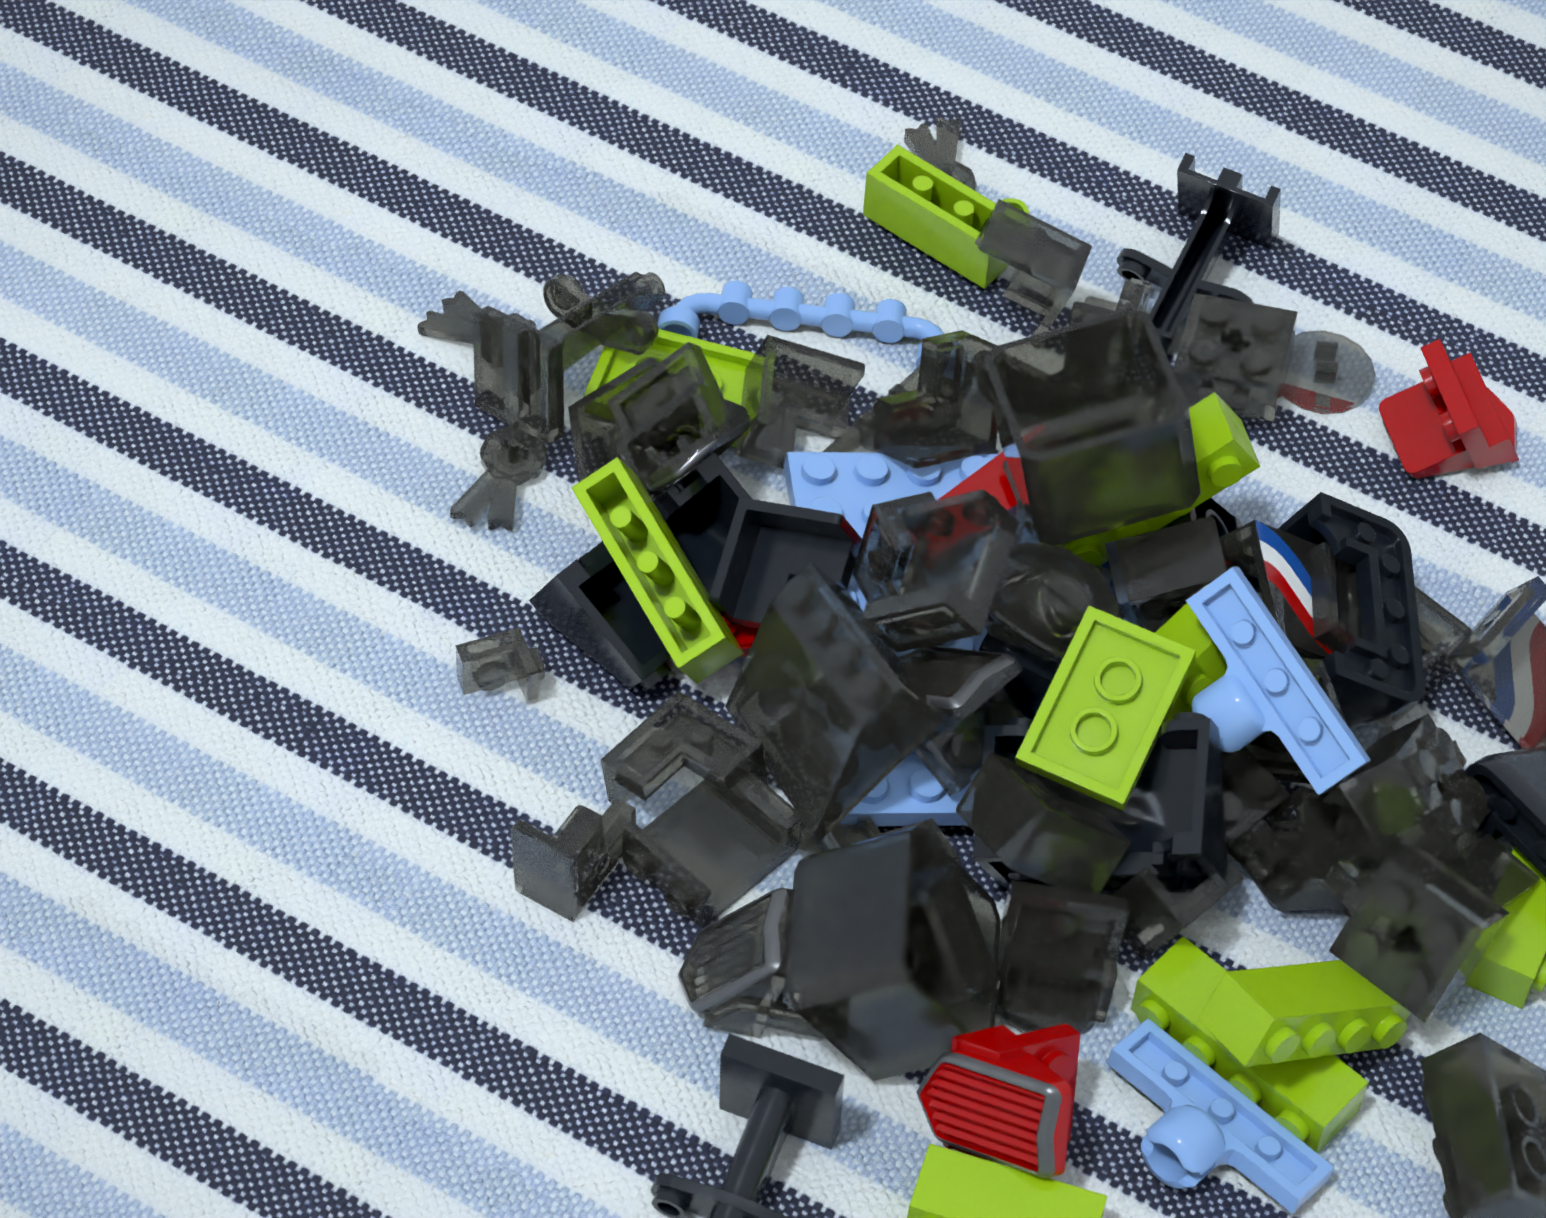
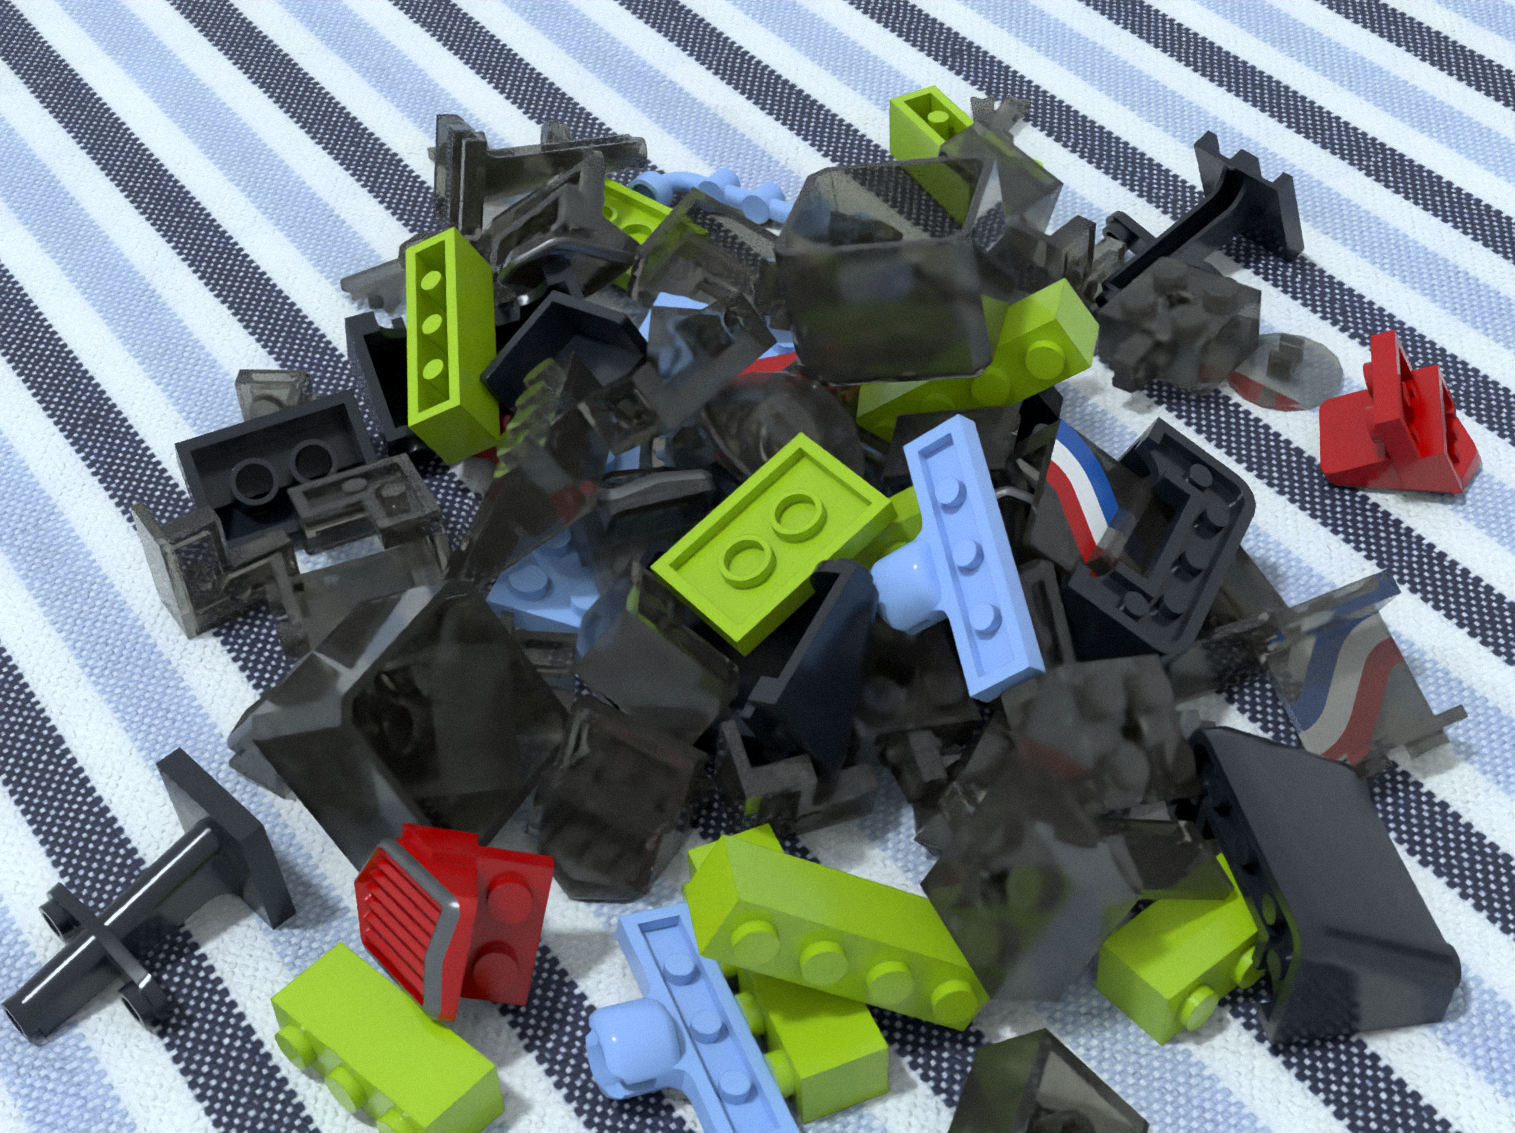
camera: 30 degrees right, 10 degrees down
(548, 746) = (253, 463): none -> black slope

